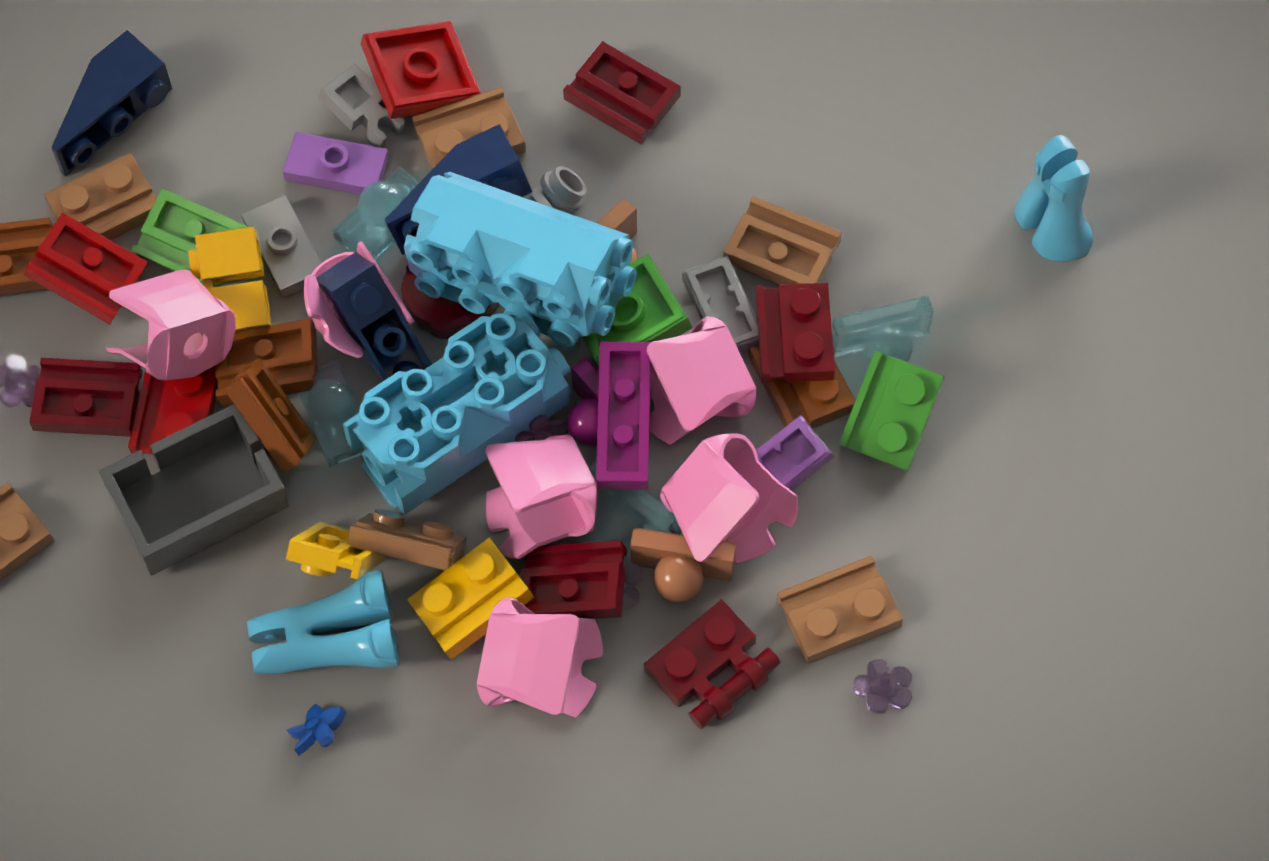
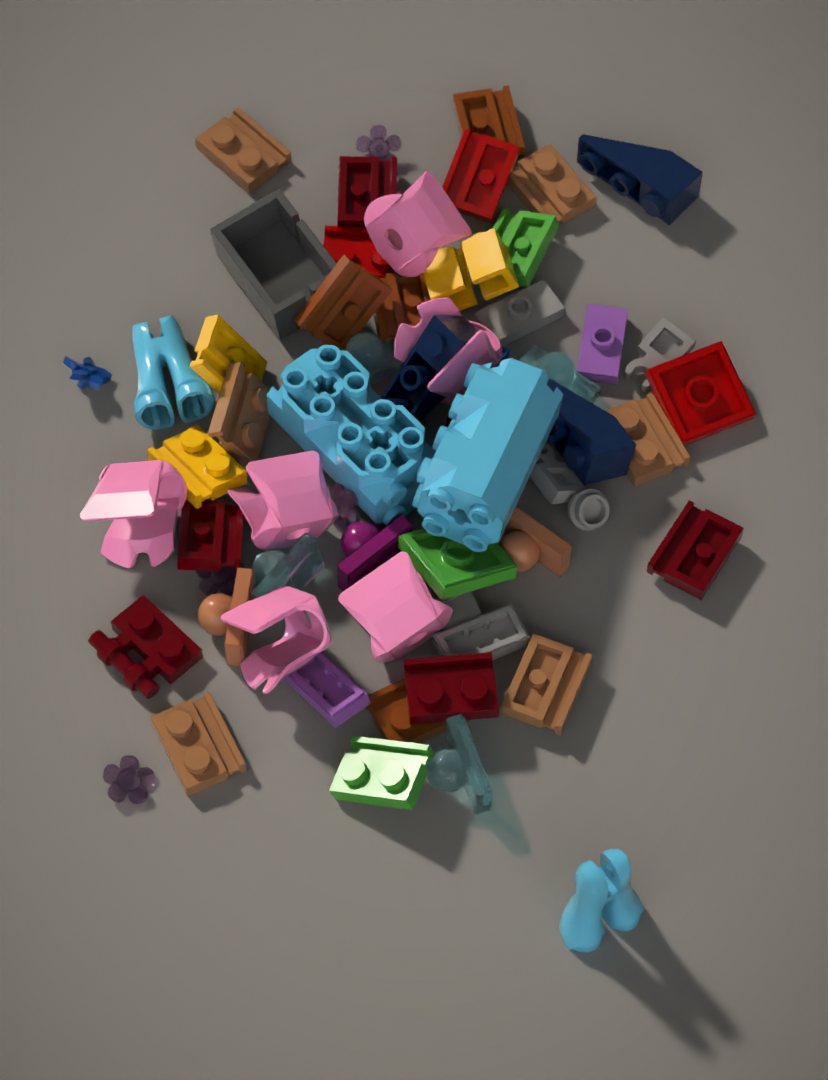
camera: 85 degrees right, 5 degrees down
(623, 416) = (345, 546): magenta plate -> none

